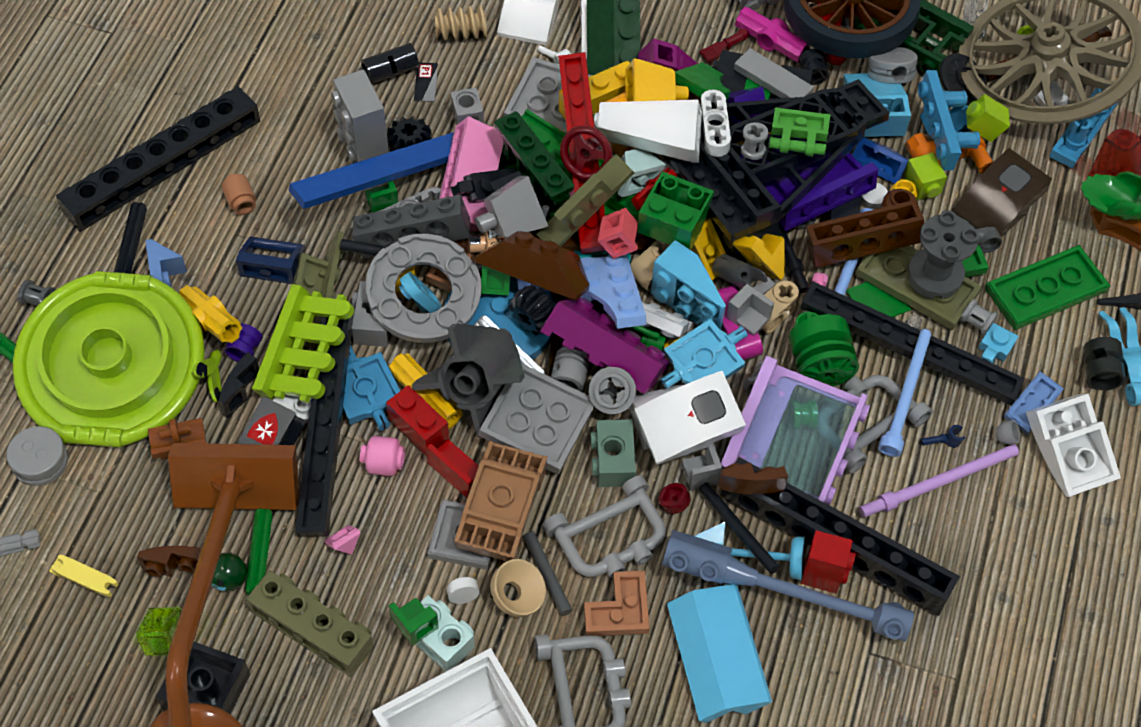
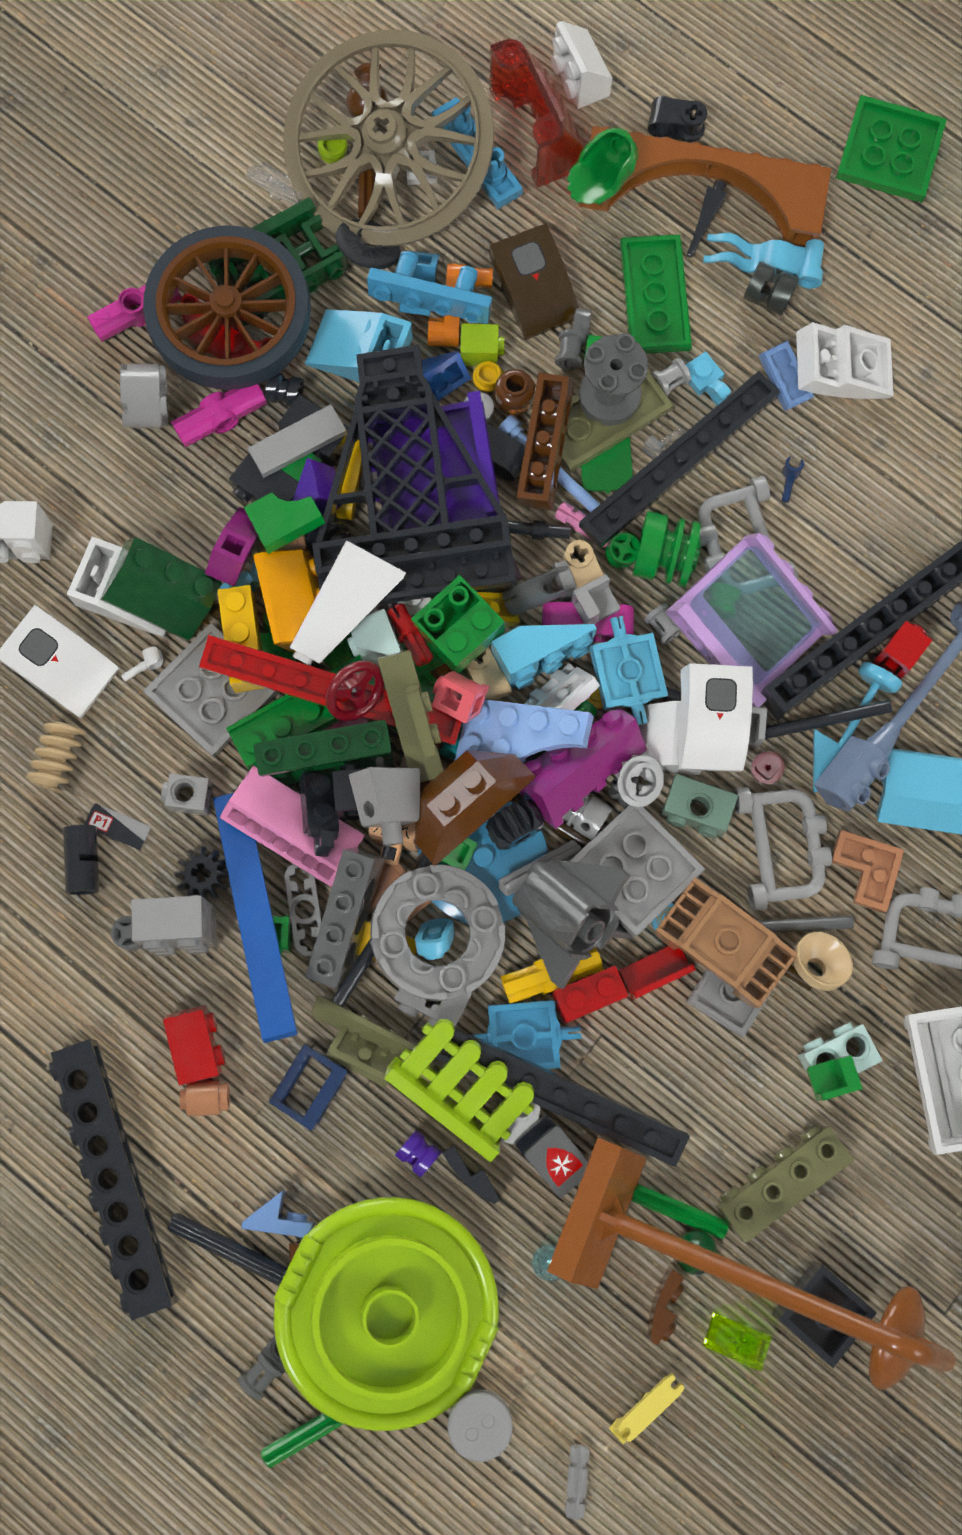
camera: 70 degrees left, 20 degrees up
(164, 436) = (519, 1262): dark orange hips -> none
(209, 368) = (443, 1202): lime piece -> none
(211, 314) = (373, 1181): yellow piece -> none
(276, 169) = (194, 1044): none -> red brick
(344, 539) = (697, 1119): bright pink slope -> none
(383, 456) = (615, 1045): bright pink head -> none
(462, 590) = (799, 1016): white tile -> none
(652, 83) = (284, 583): yellow torso -> none
(711, 131) = (388, 533): white beam -> none
(714, 51) = (210, 482): dark red piece -> none
(744, 480) = (803, 691): reddish brown slope -> none
(754, 141) = (405, 498): light grey bush -> none
(764, 253) = (528, 550): yellow slope -> none
(799, 125) = (408, 444): bright green plate -> none
(890, 500) = (841, 562): lavender bar -> none
(892, 442) = (784, 529): light blue piece -> none
(894, 66) = (330, 306): light grey head -> none
(987, 117) = (441, 245): lime brick -> none
(1008, 432) = (809, 417): light grey hinge -> none

